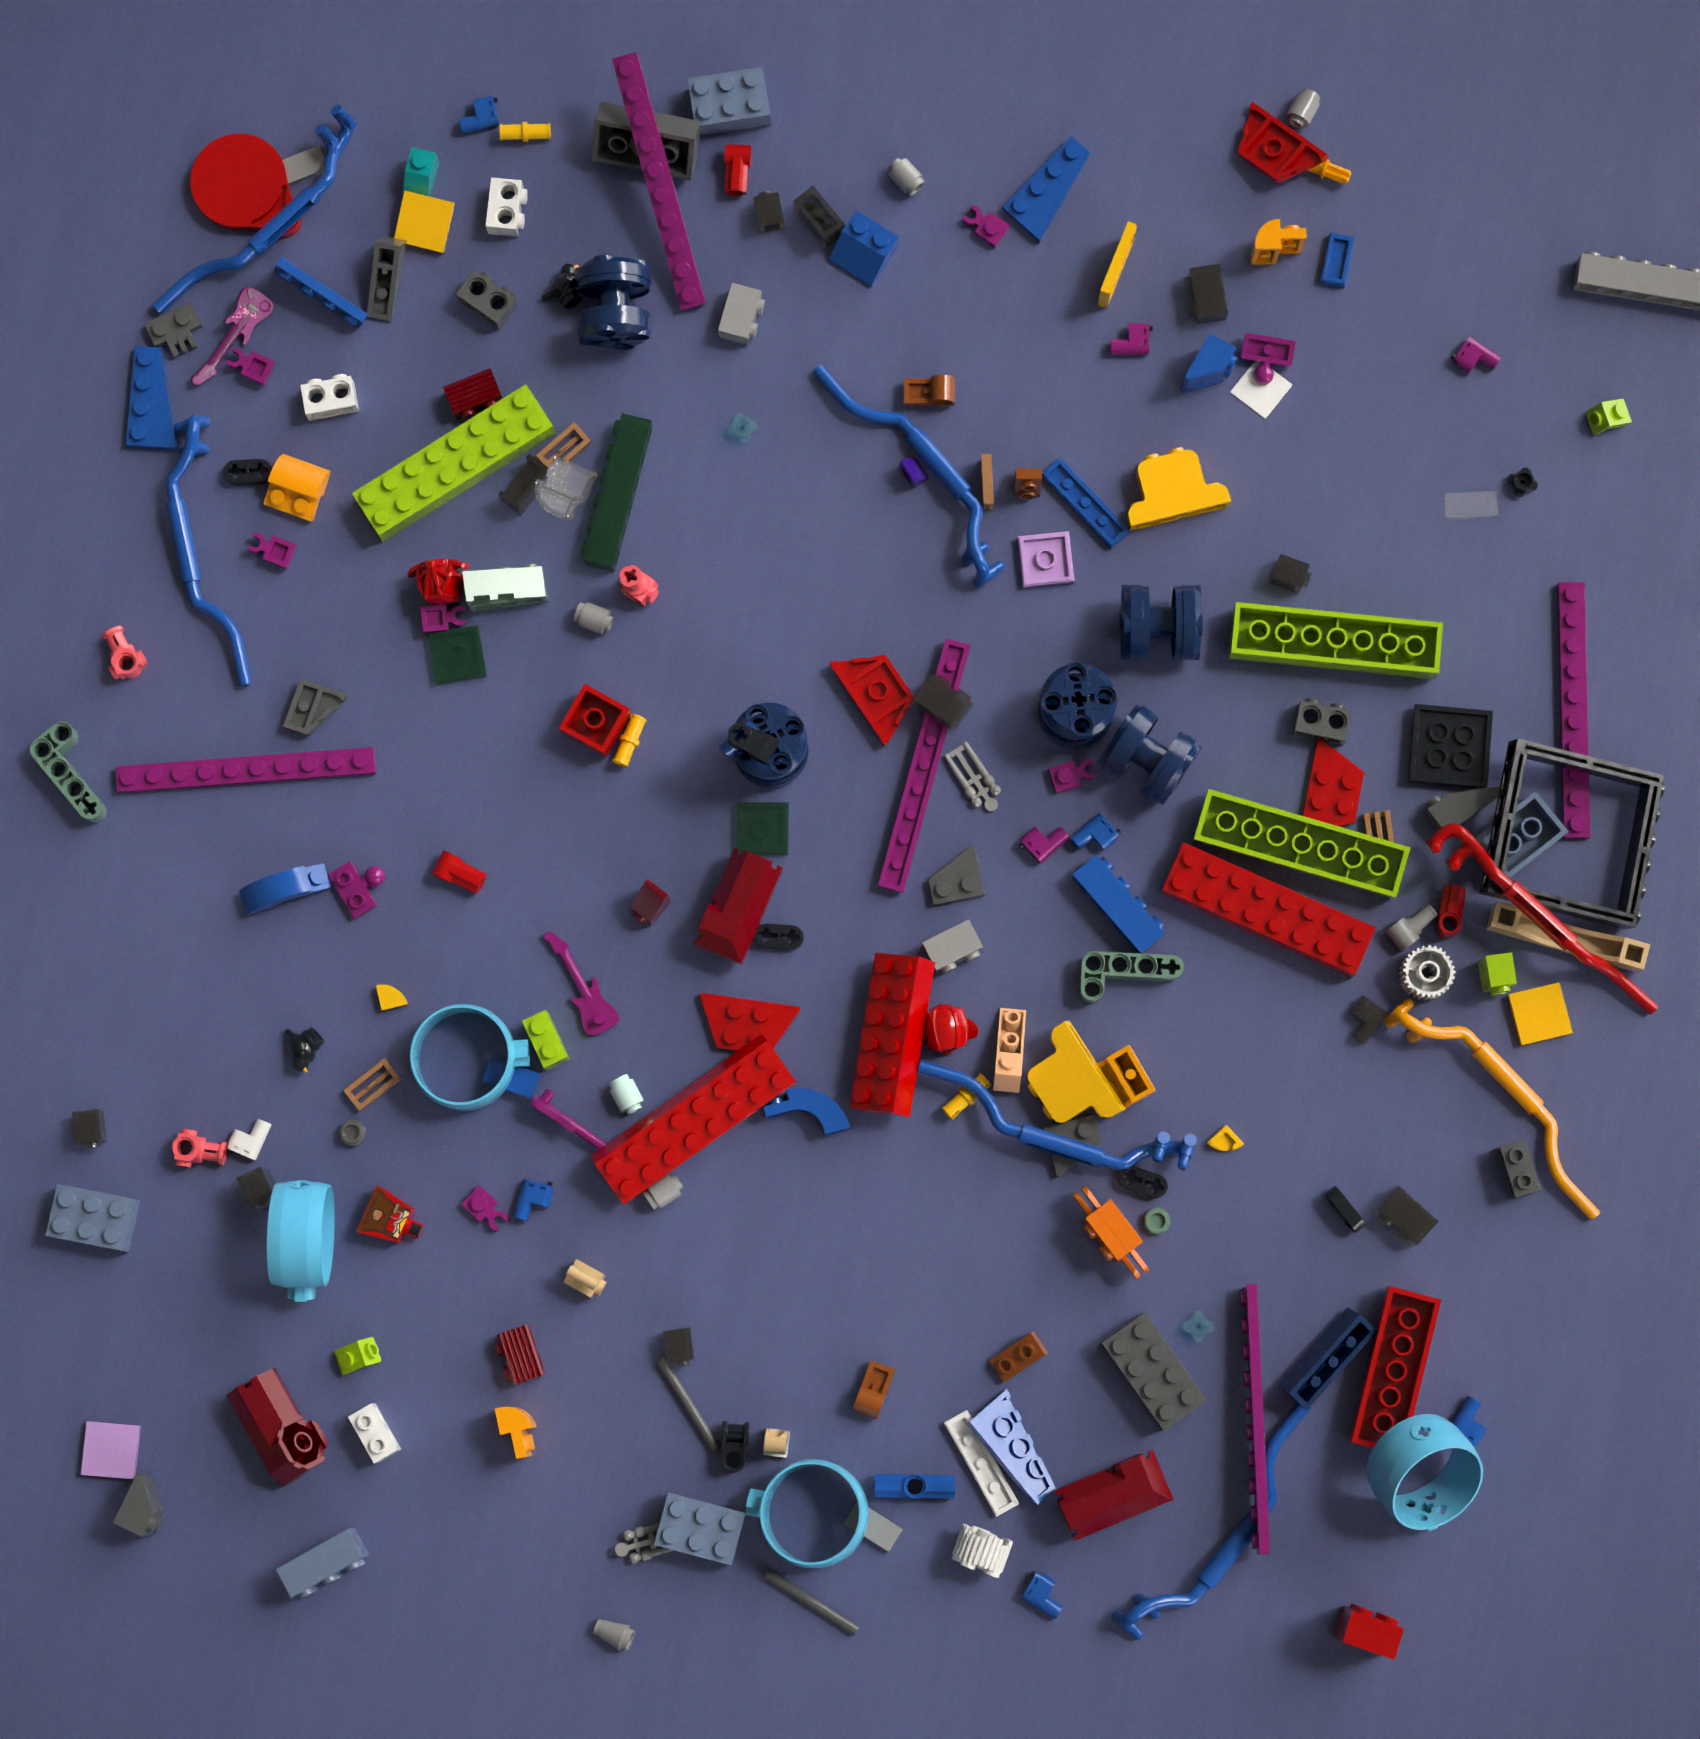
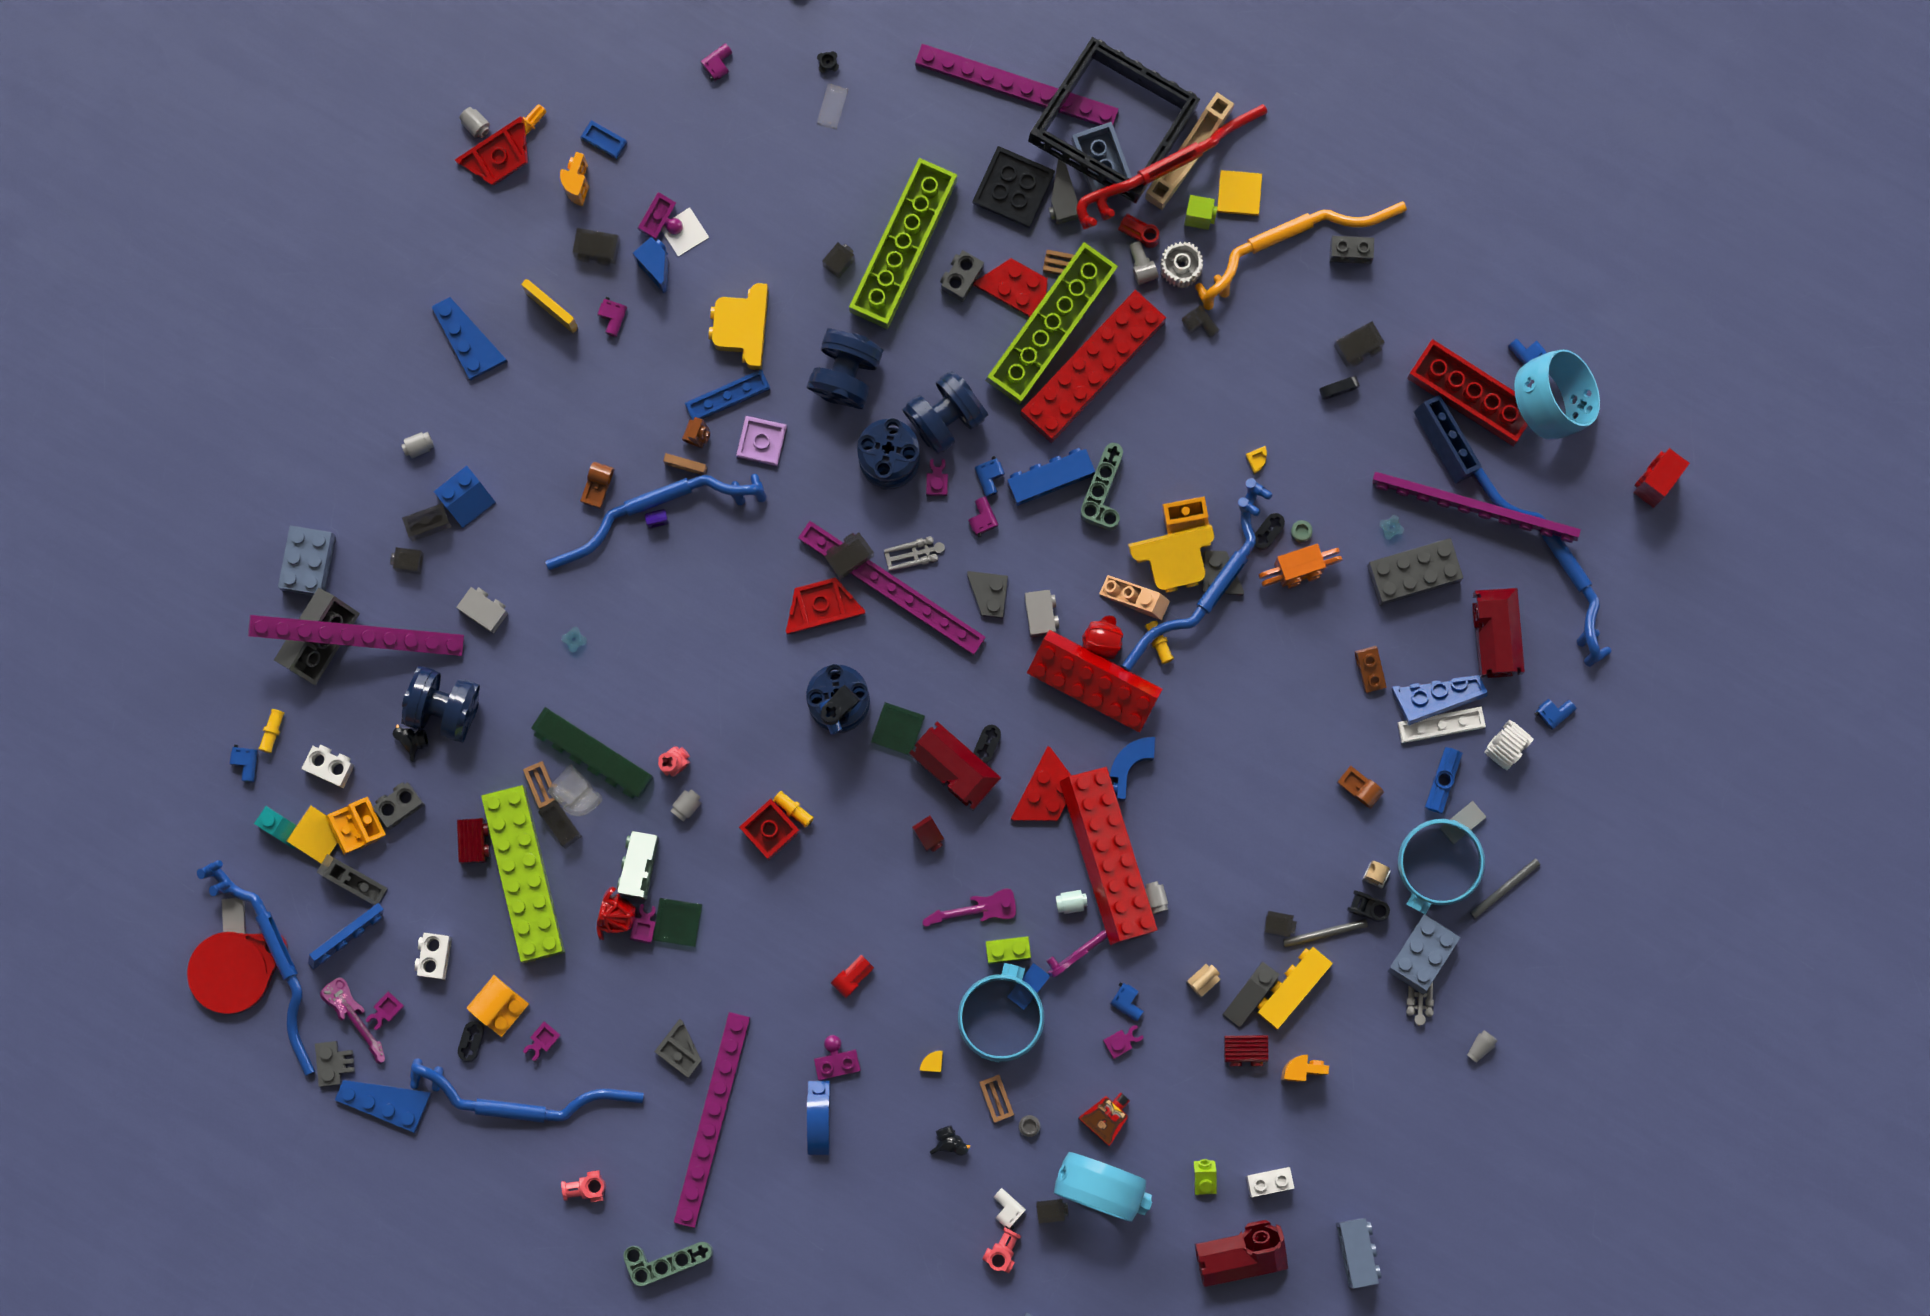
camera: 75 degrees left, 0 degrees up
(447, 259) = (356, 825): none -> light orange brick
(587, 1340) = (1251, 994): none -> dark grey slope
(610, 1388) = (1294, 988): none -> yellow brick
(737, 161) = (357, 571): red piece -> none
(989, 228) = (481, 394): magenta plate -> none

